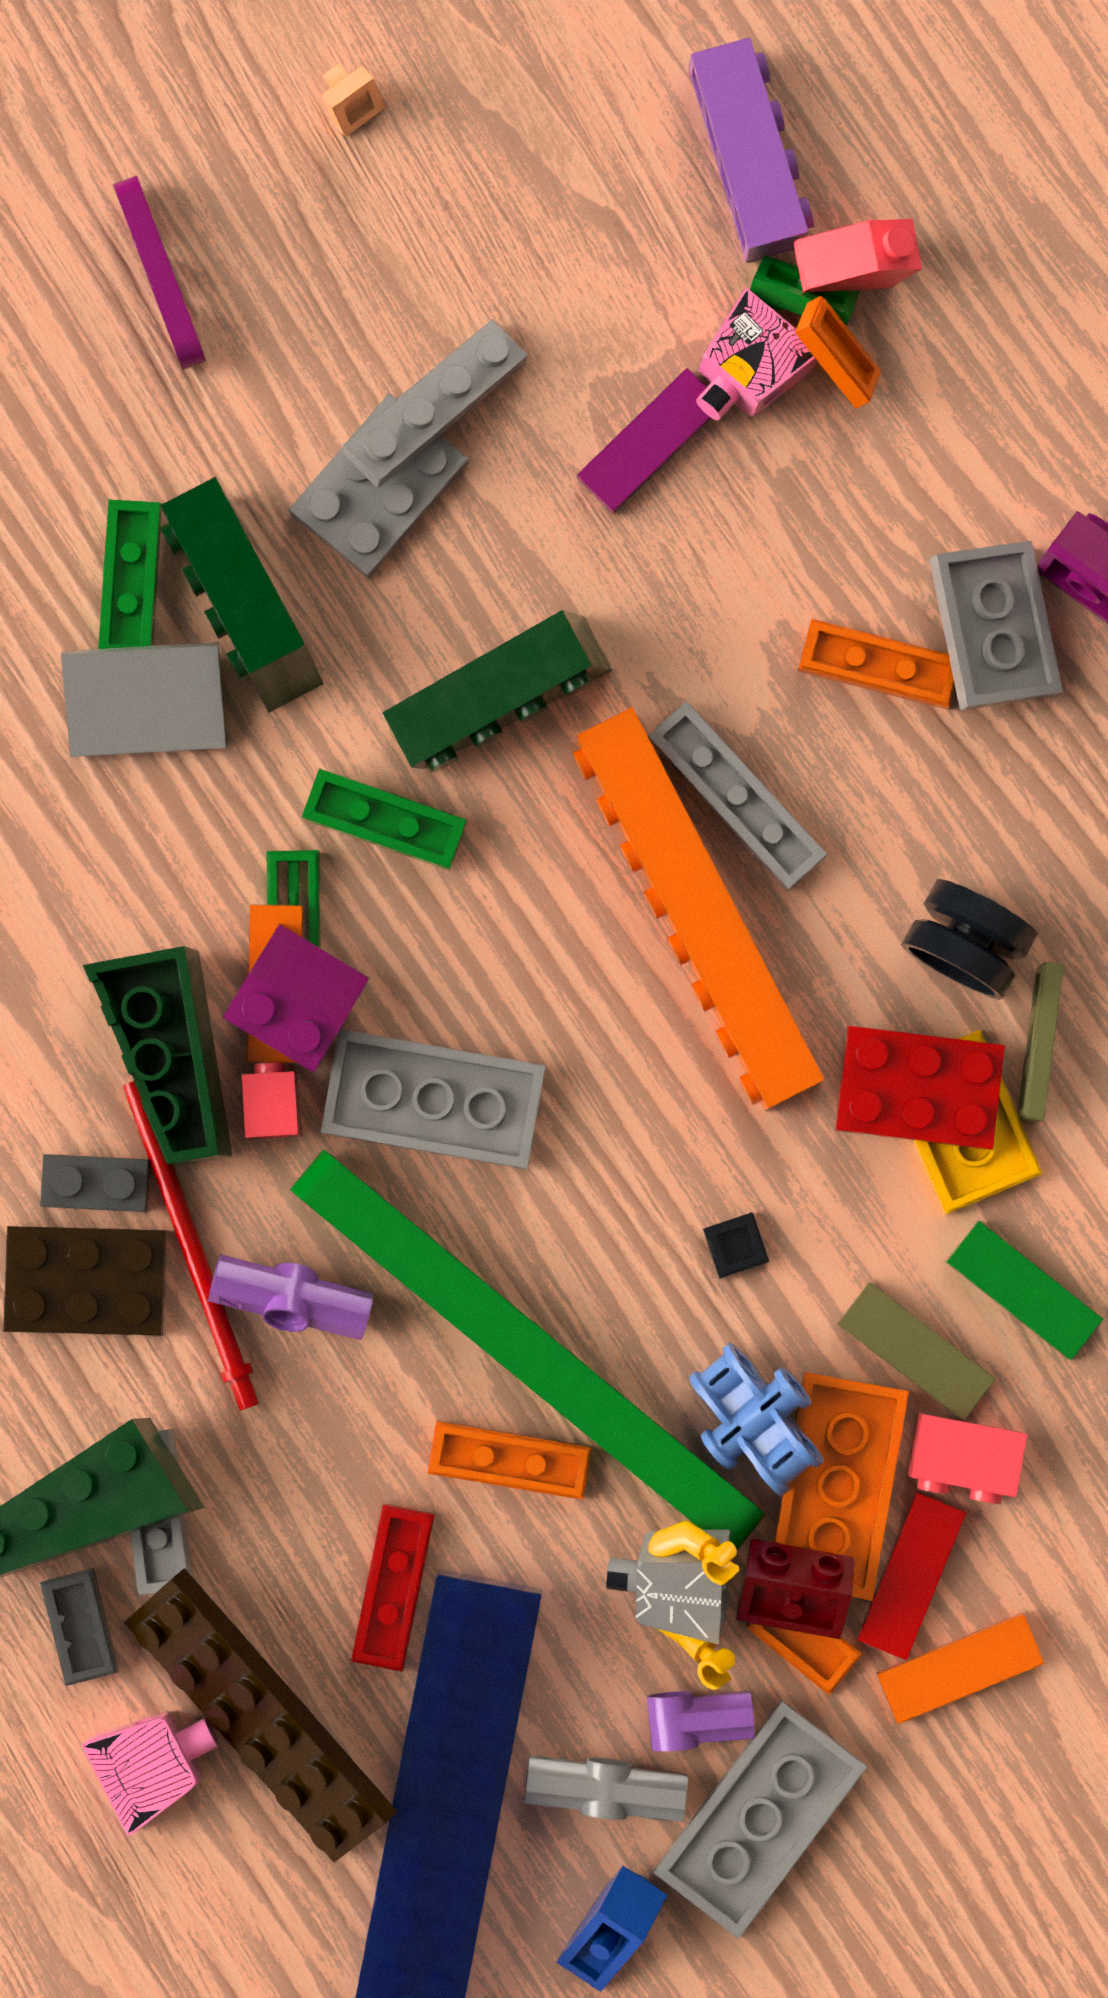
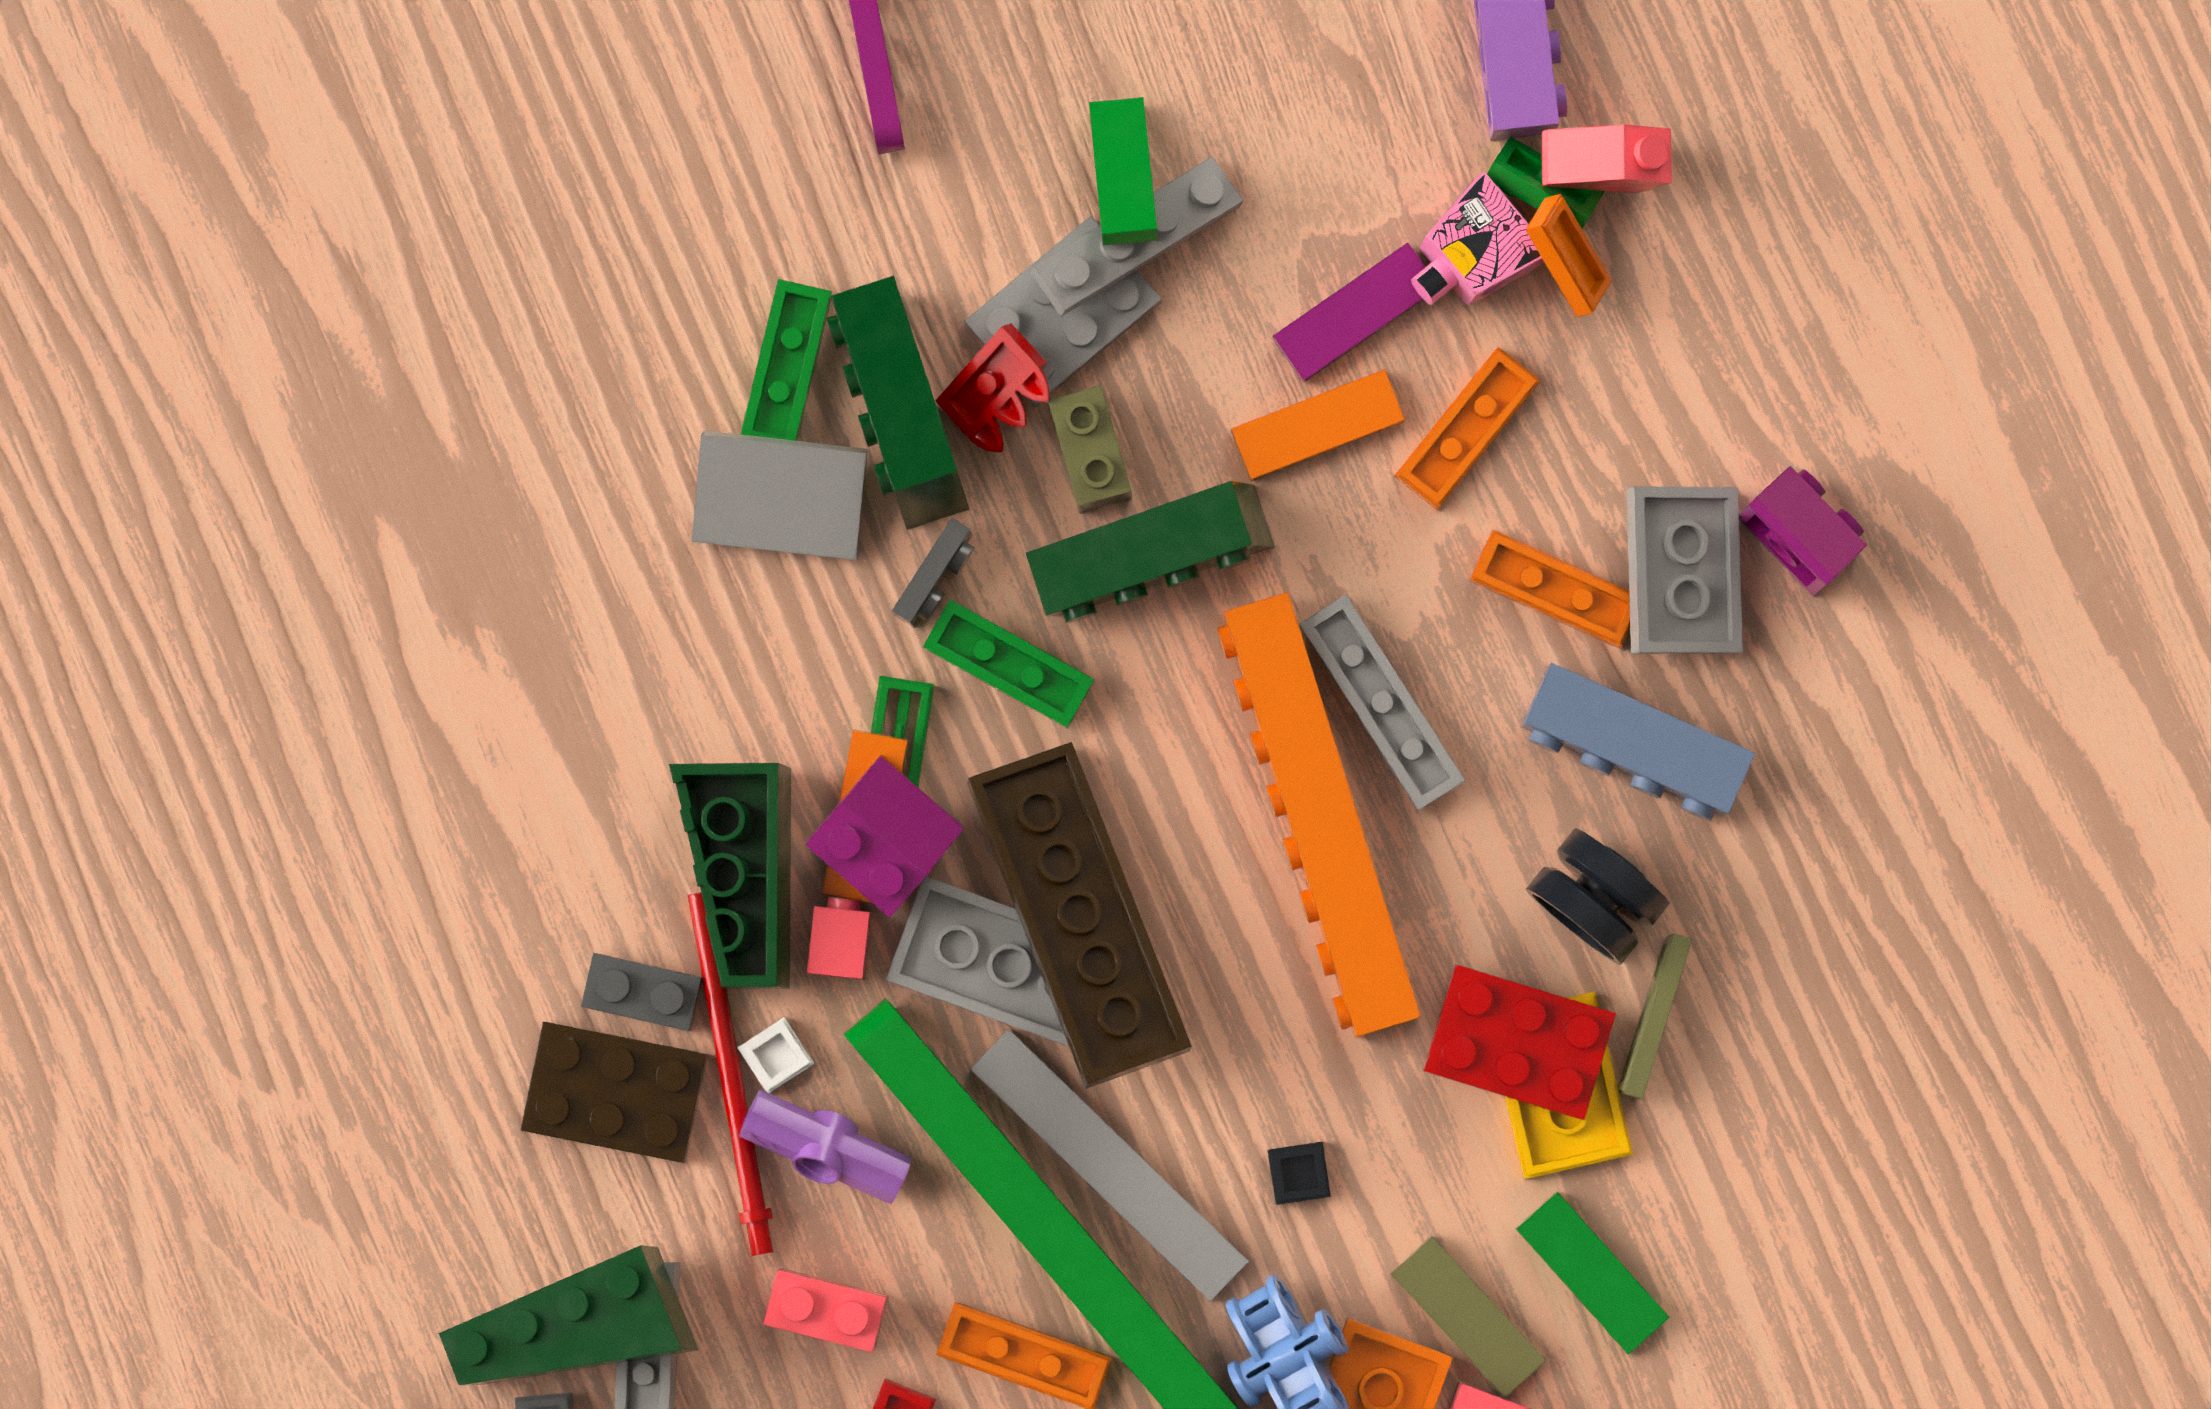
camera: 15 degrees right, 0 degrees up
(230, 1220) = (776, 1055): none -> white tile
(292, 768) = (922, 593): none -> dark grey plate
(317, 1449) = (826, 1309): none -> coral brick
(325, 565) = (992, 388): none -> red plate
(412, 345) = (1123, 171): none -> green tile
(425, 607) = (1090, 449): none -> olive brick
(490, 1040) = (1079, 915): none -> dark brown plate
(558, 1268) = (1109, 1165): none -> light grey tile
(632, 550) = (1317, 425): none -> orange tile
(771, 530) = (1467, 428): none -> orange tile
(980, 791) = (1637, 741): none -> sand blue brick

